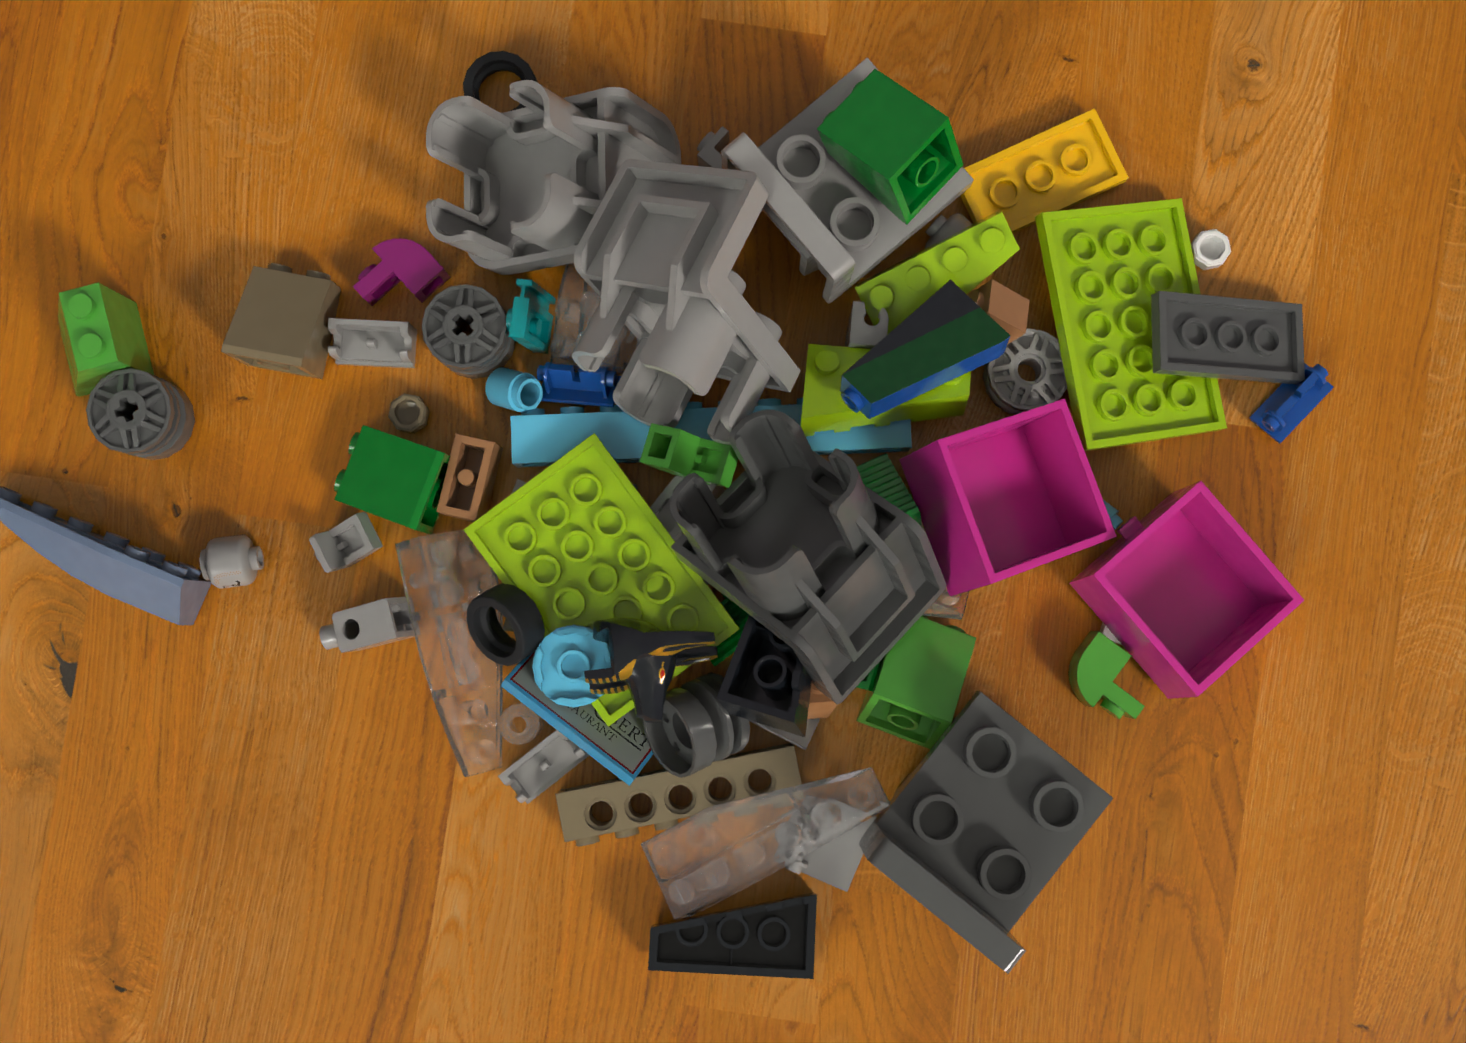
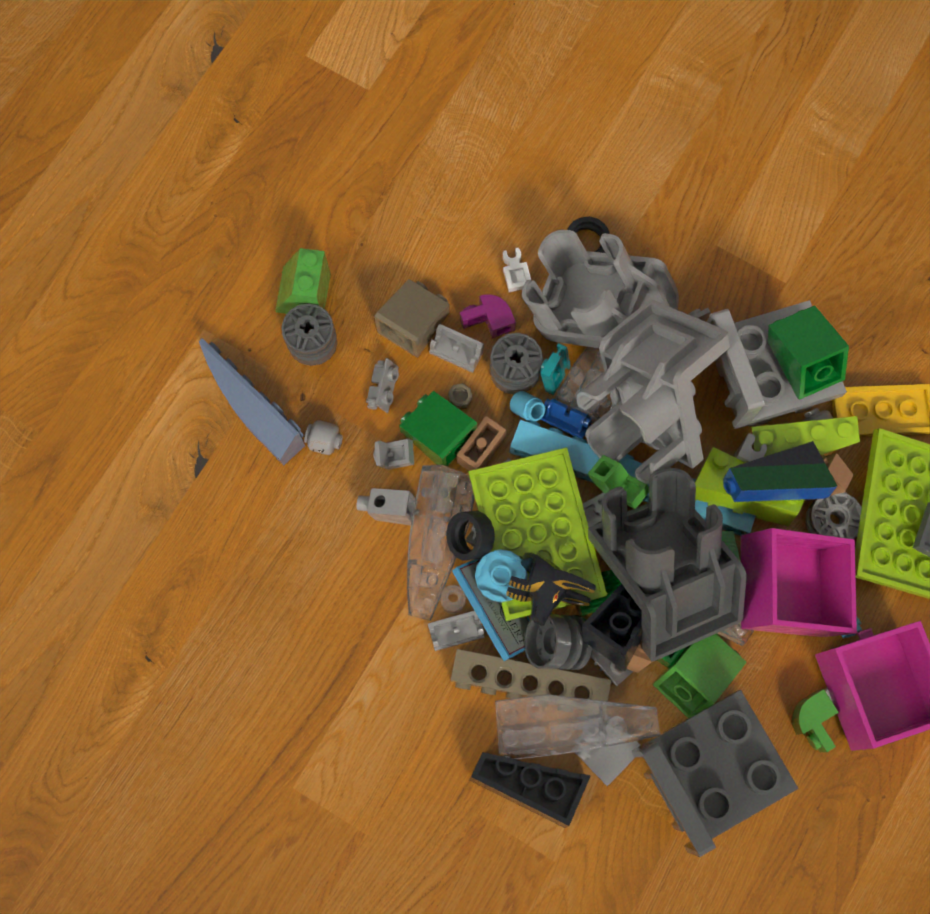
camera: 20 degrees right, 10 degrees down
(286, 427) = (386, 375): none -> light grey hinge
(415, 186) = (516, 272): none -> white plate

